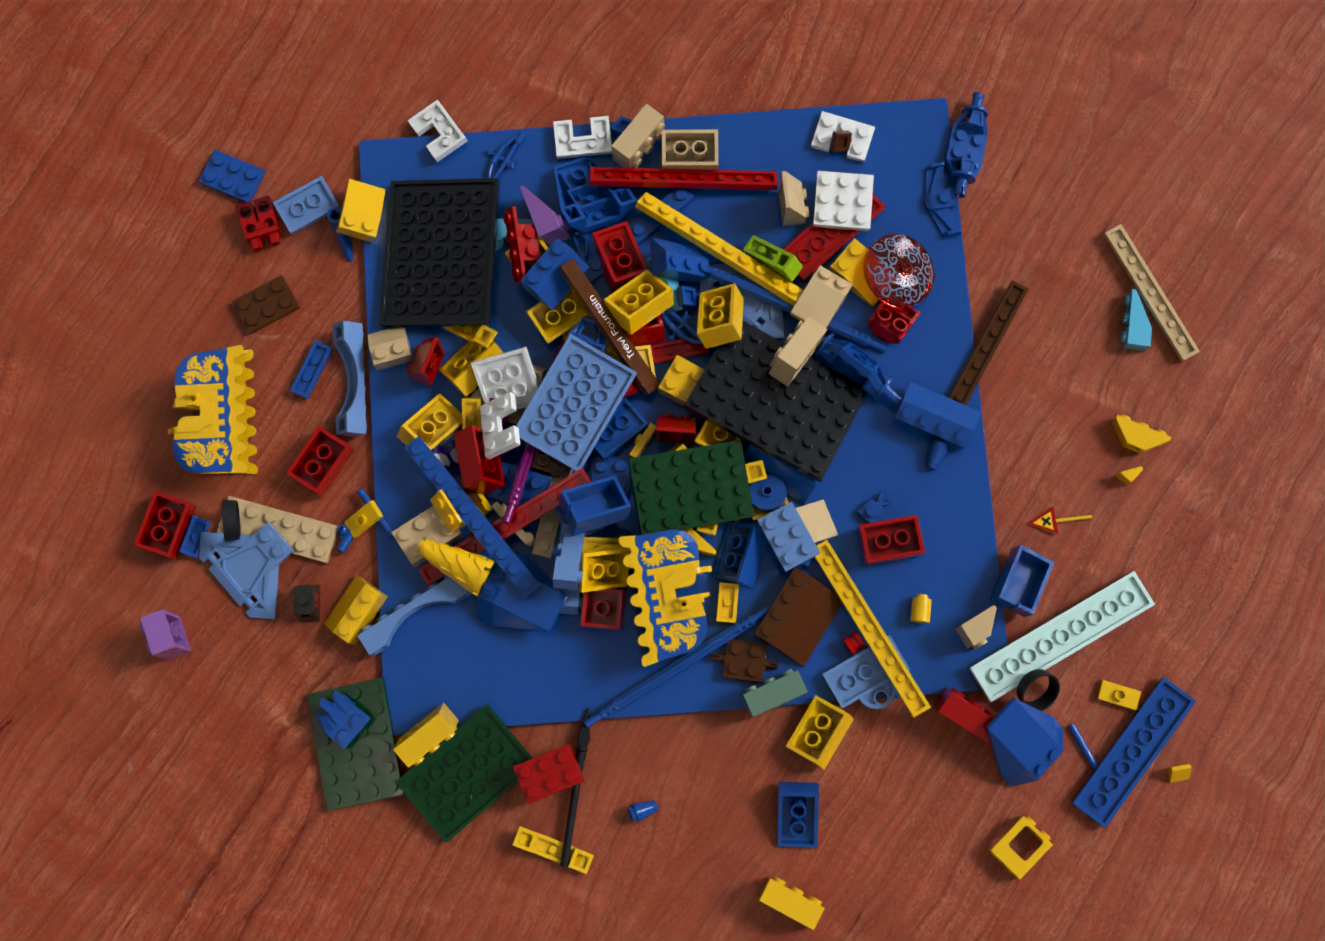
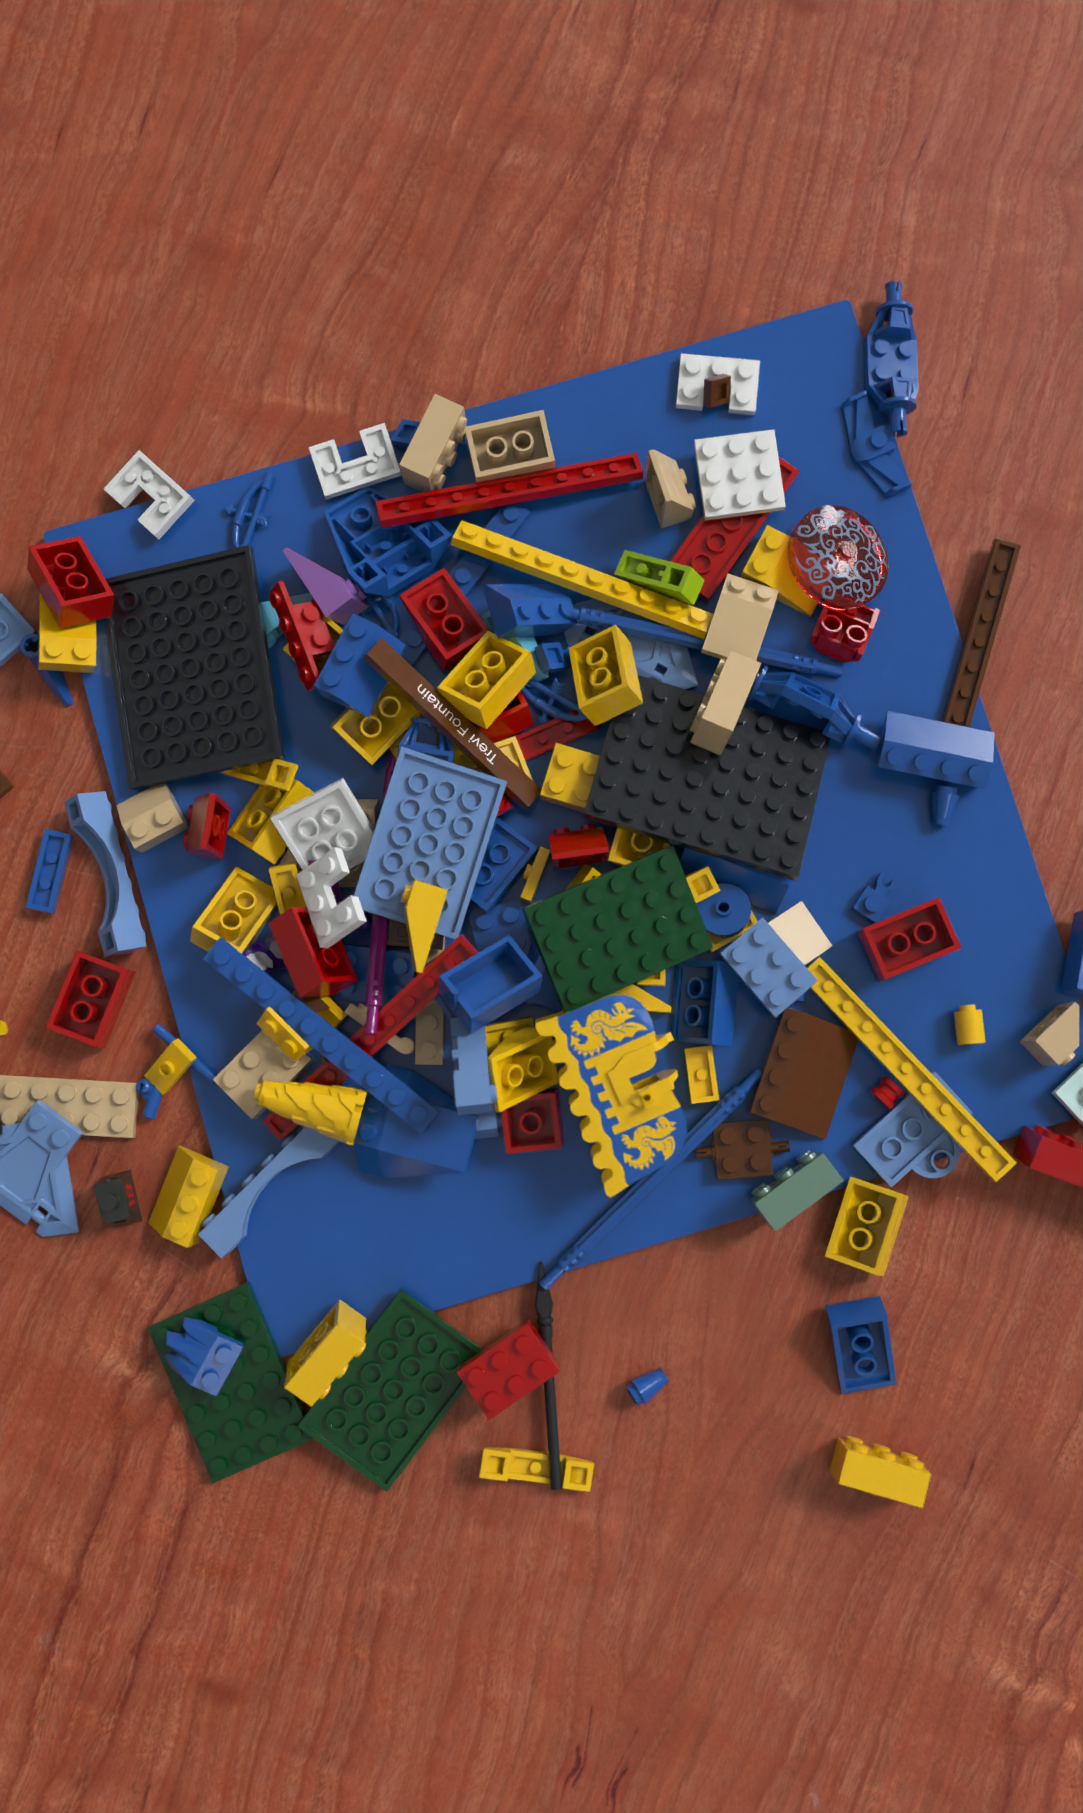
camera: 10 degrees left, 5 degrees up
(371, 177) = (70, 581): none -> red brick
(558, 447) = (421, 914): none -> yellow slope

